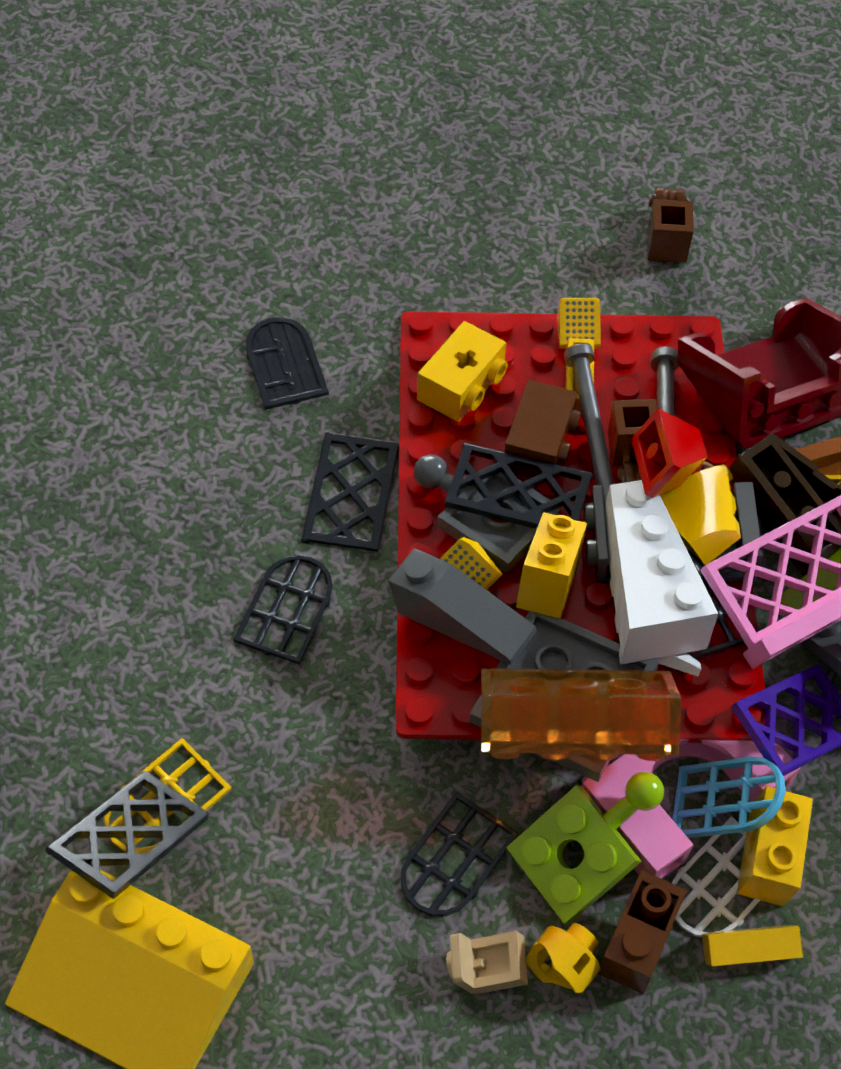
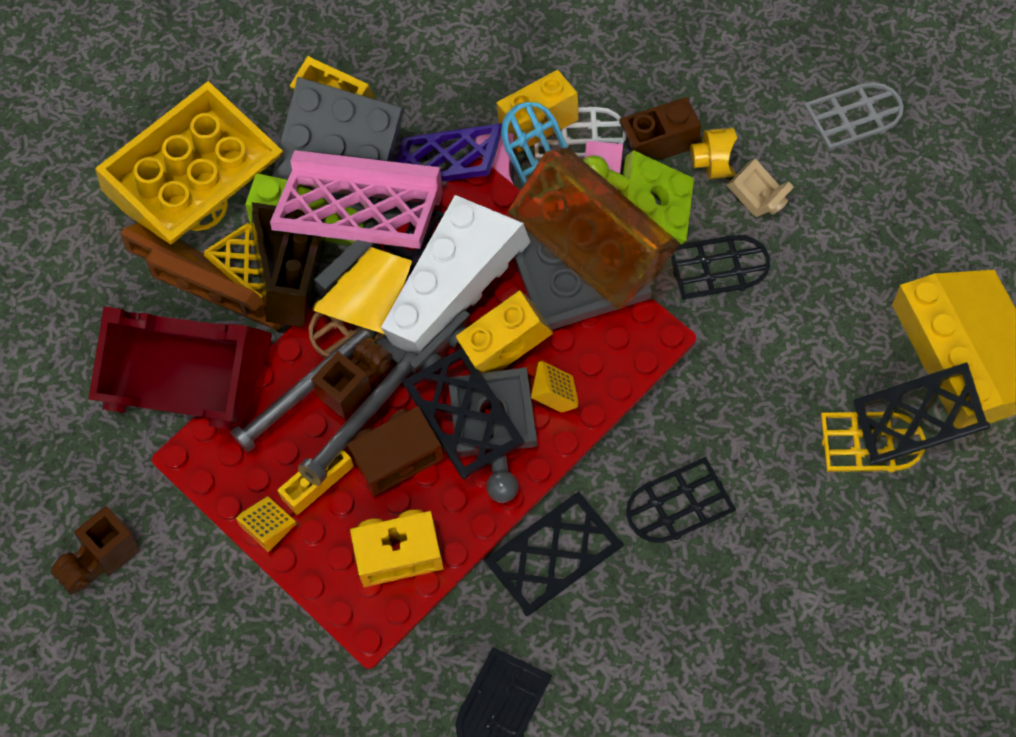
camera: 135 degrees left, 5 degrees up
(458, 607) = (593, 357): dark grey slope -> none
(667, 452) = (360, 320): red slope -> none
(752, 945) = (602, 87): yellow piece -> none

